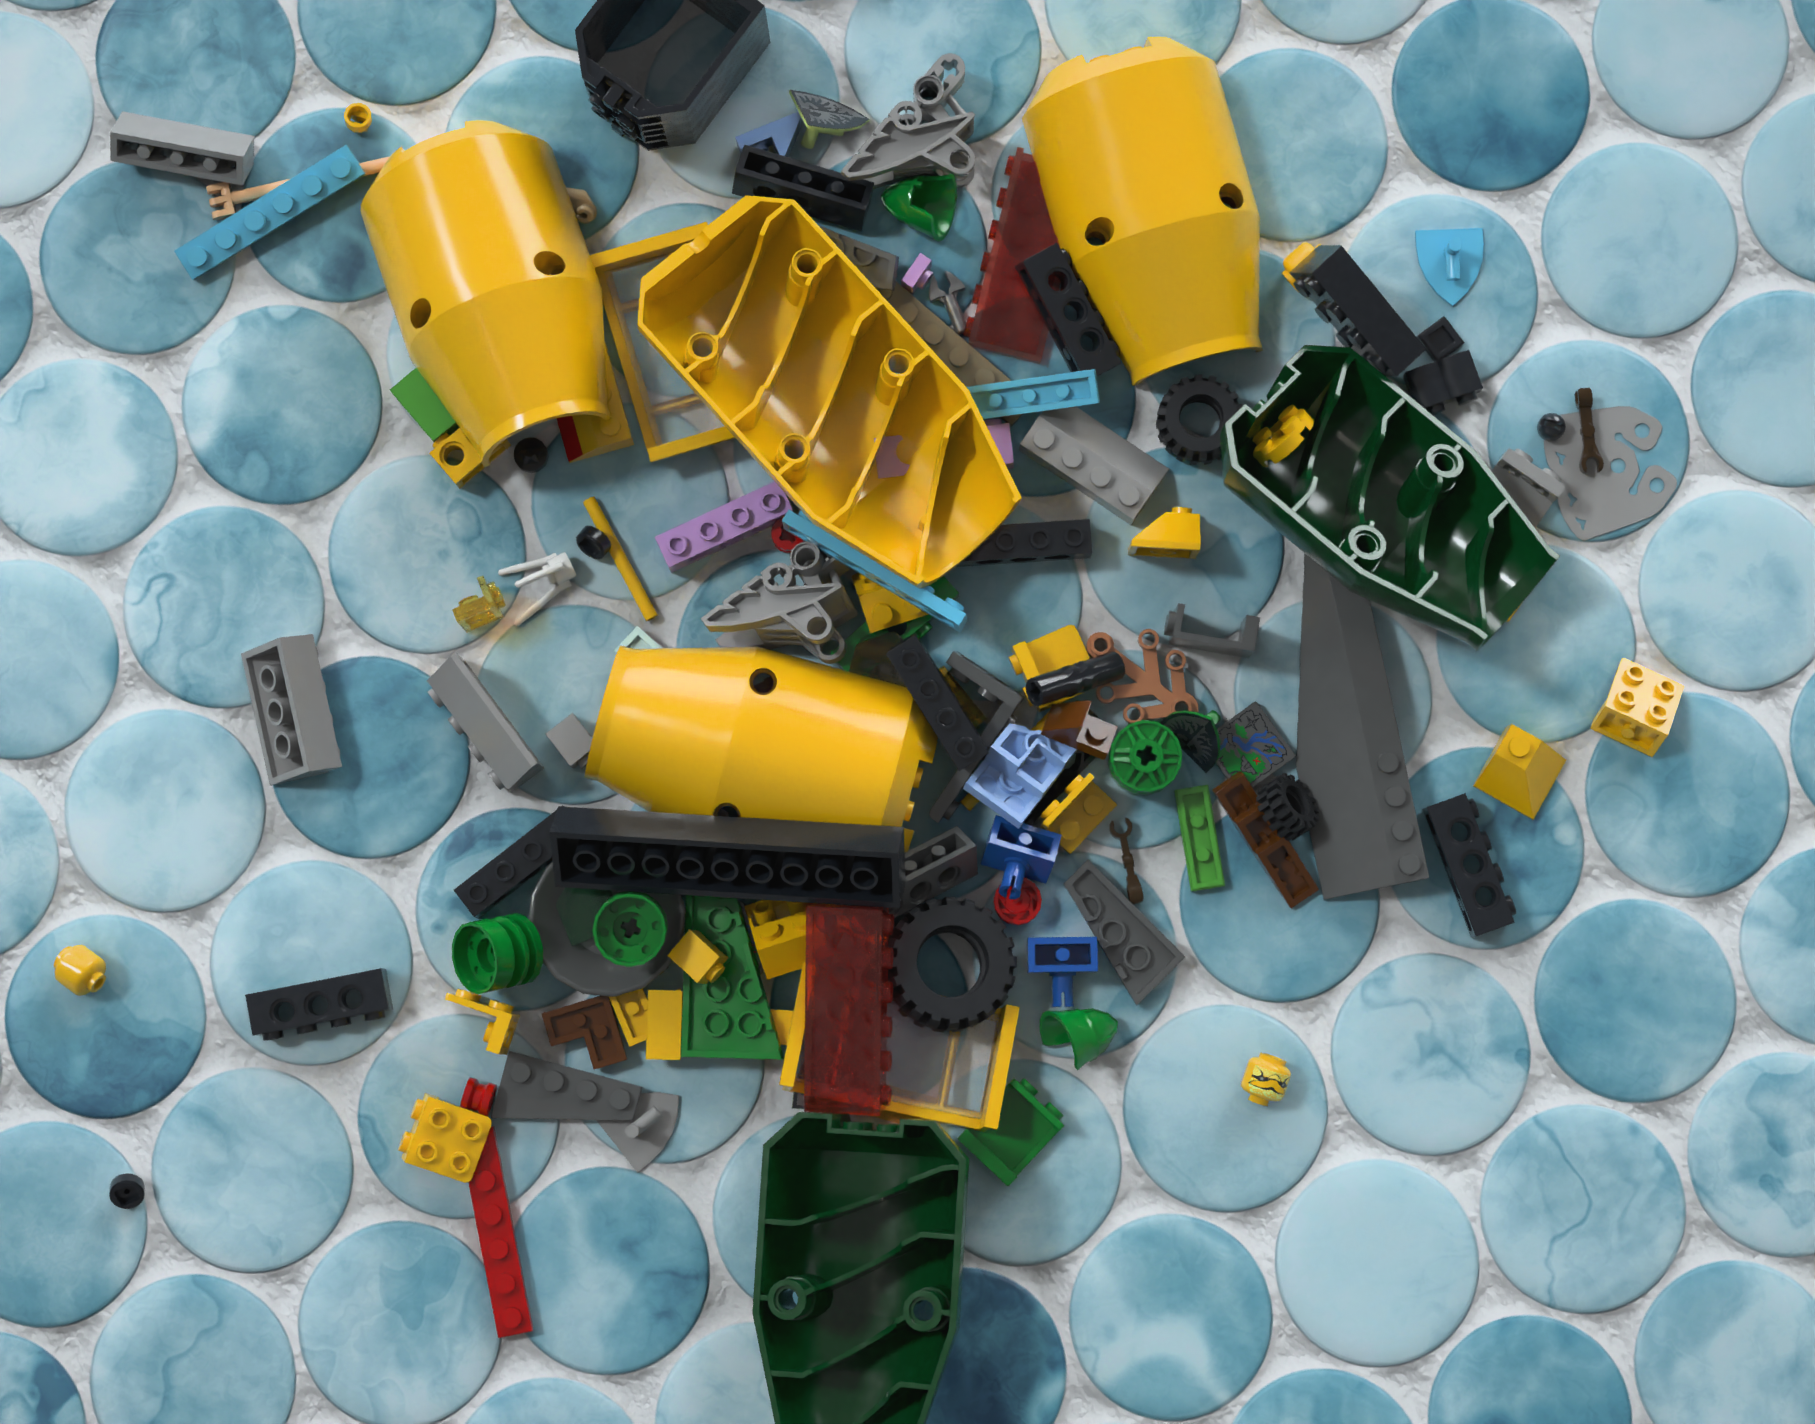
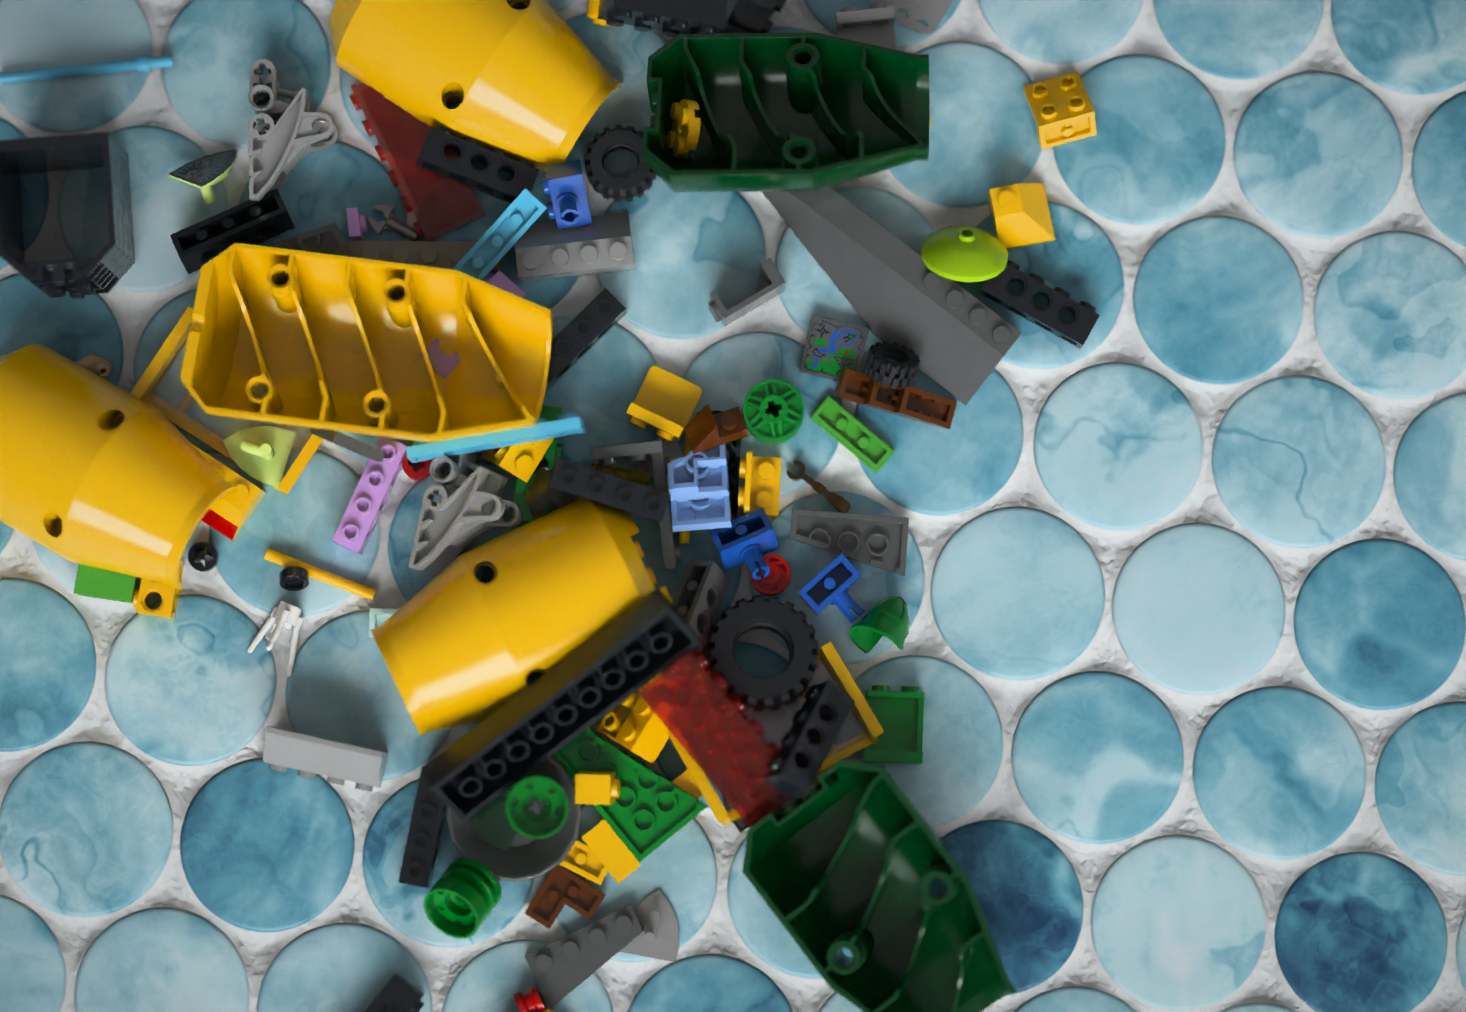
camera: 45 degrees left, 0 degrees up
(291, 709) = (188, 857): light grey slope -> none
(476, 611) = (258, 687): clear yellow bracket -> none
(497, 1034) = (507, 950): yellow bracket -> none
(571, 741) = (392, 719): light grey brick -> none
(658, 405) = (259, 453): none -> yellowish green shield
(743, 465) = (349, 443): none -> dark grey tile
(779, 133) = (185, 209): light blue slope -> none
(880, 1104) = (796, 779): none -> black brick
(923, 203) = (320, 174): green helmet -> none
(1075, 678) = (685, 399): black axle -> none
(1128, 406) = (567, 193): none -> blue brick
(1146, 681) = (732, 362): nougat plant -> none
(1170, 536) = (666, 254): yellow slope -> none
(1196, 735) = (794, 368): shield -> none
(1265, 1079) = (1027, 552): yellow head -> none
(1438, 763) = (964, 254): none -> lime dish

